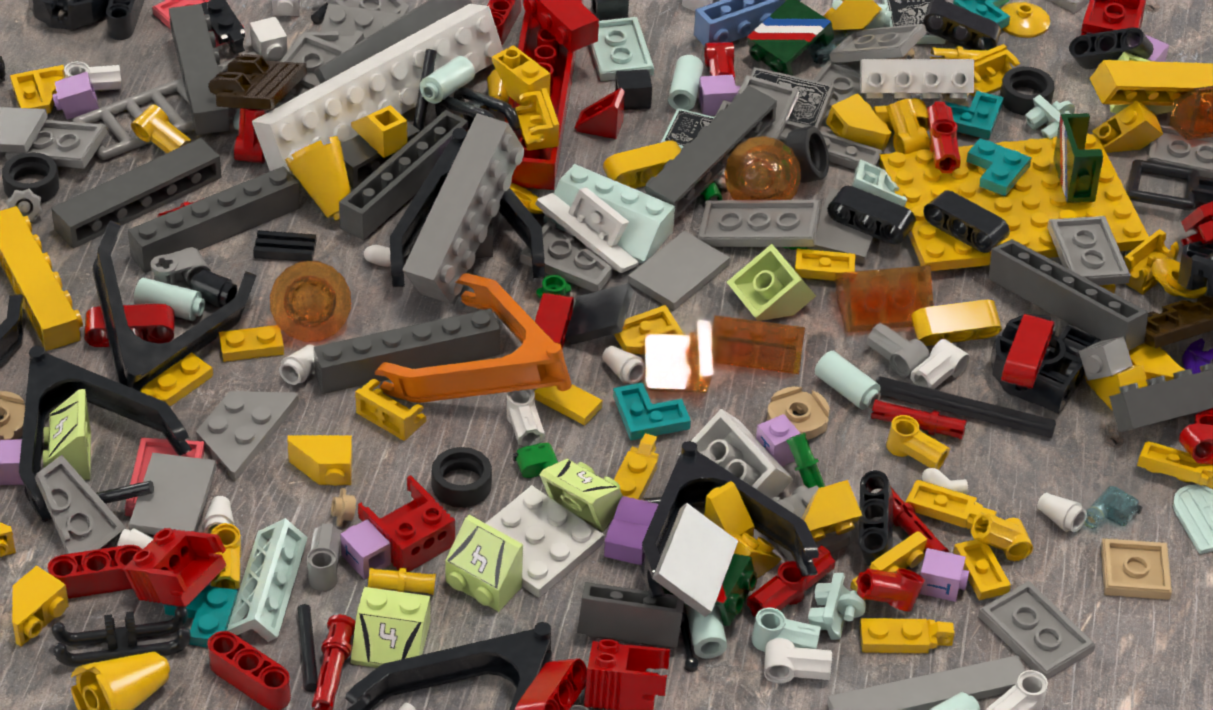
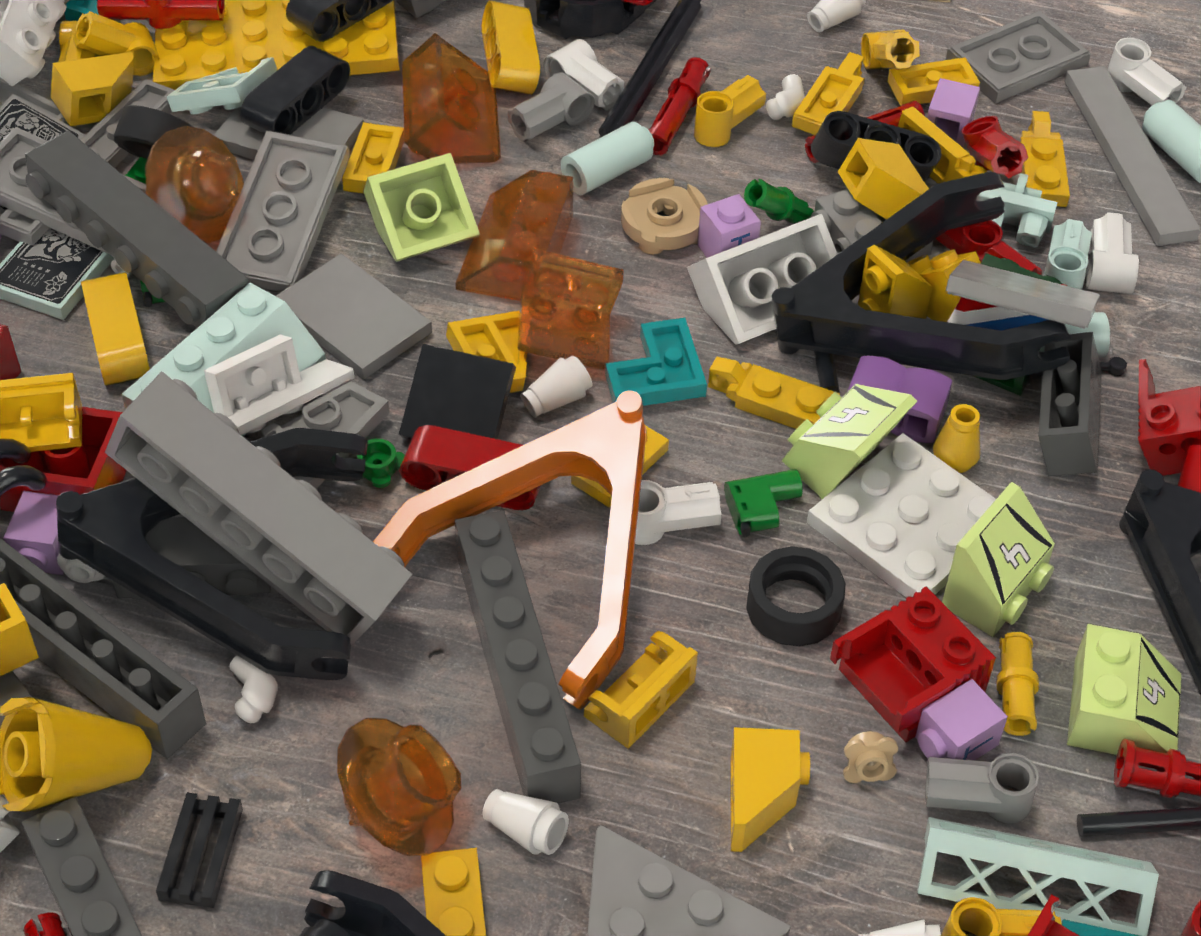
camera: 85 degrees left, 5 degrees up
(595, 558) = (960, 439): none -> yellow cone

